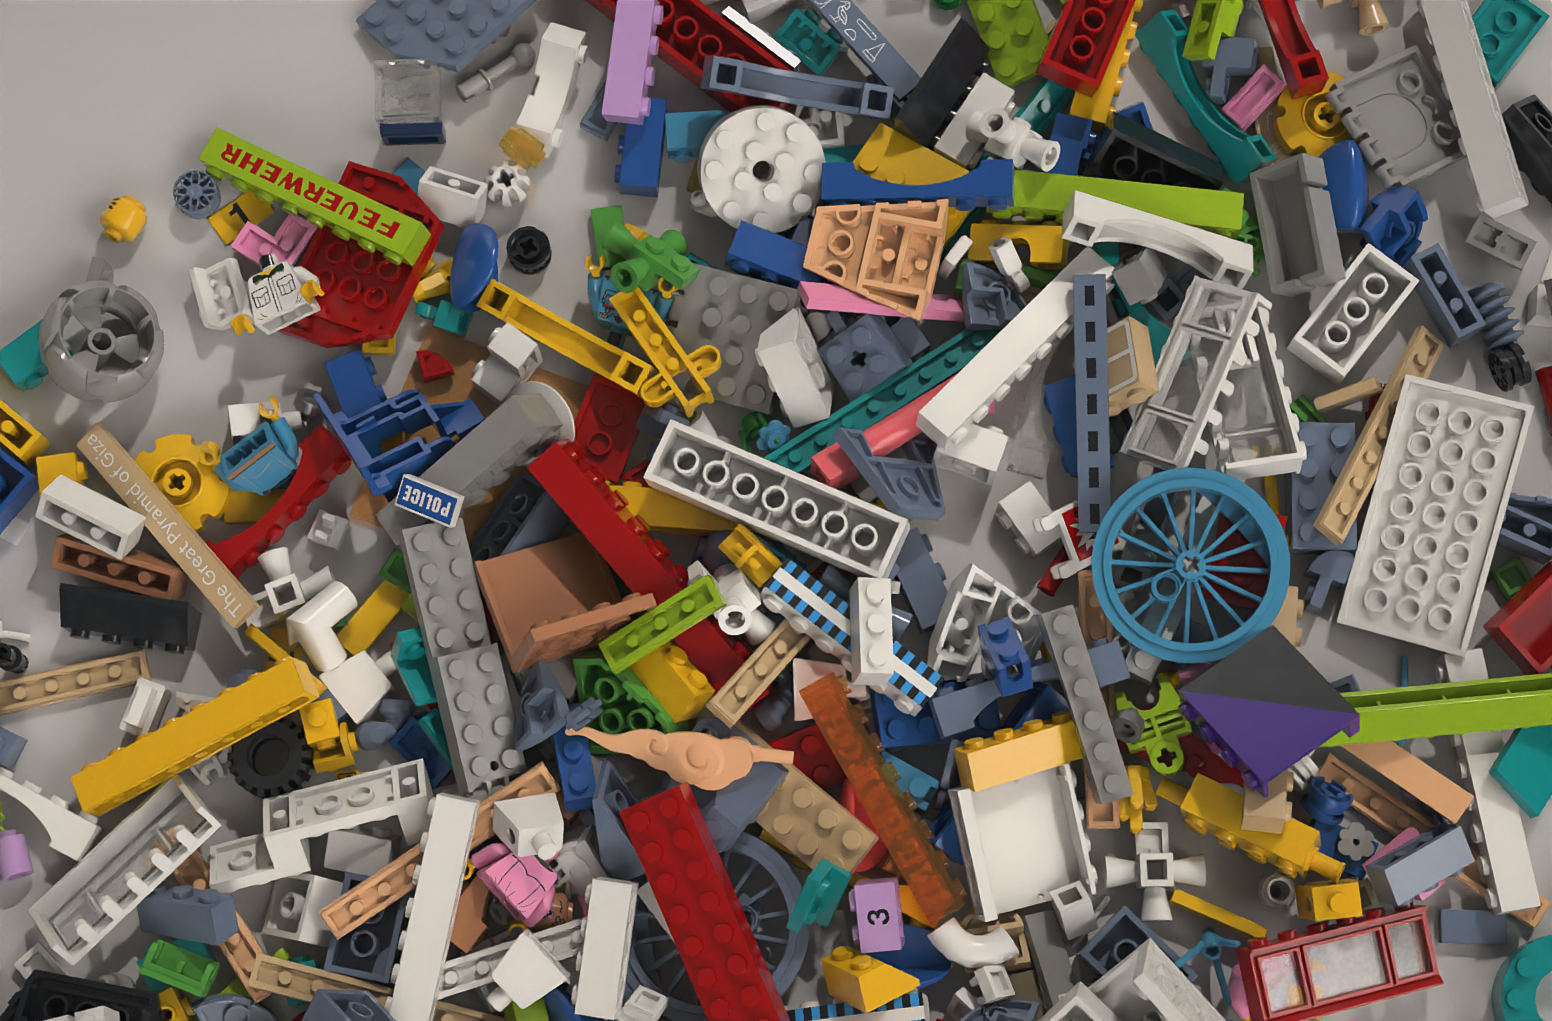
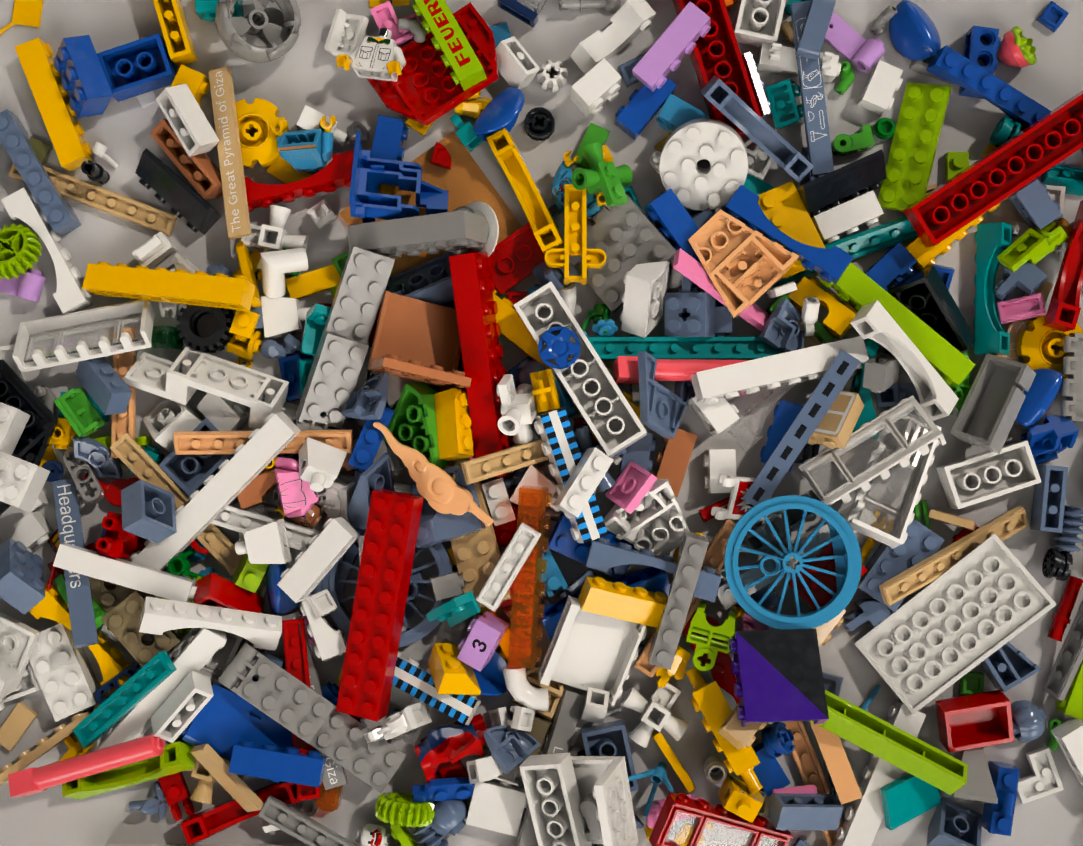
camera: 30 degrees right, 10 degrees up
(230, 807) = (166, 338): none -> clear green bracket
(300, 231) = (413, 26): none -> light grey arm
(429, 500) = (381, 238): tile -> none
(510, 364) = (482, 185): white brick -> none
(522, 147) = (574, 60): clear yellow brick -> none
(571, 164) = (596, 88): none -> white brick
(583, 714) = (390, 420): sand blue piece -> none
(662, 624) = (466, 399): lime plate -> none
(734, 489) = (559, 347): none -> blue wheel
(783, 732) = (498, 501): none -> white plate
(787, 876) = (447, 585): none -> light grey brick
(849, 796) = (508, 567): none -> white tile
(924, 34) = (855, 143): none -> bright green leg
(934, 605) = (631, 487): none -> bright pink plate
(963, 537) = (675, 458): none -> nougat brick
(1001, 651) = (650, 543): blue brick -> none
(1011, 139) = (861, 243): white brick -> none
(1128, 725) = (694, 628): flat silver tile -> none
(1363, 848) = (781, 780): light grey plant -> none

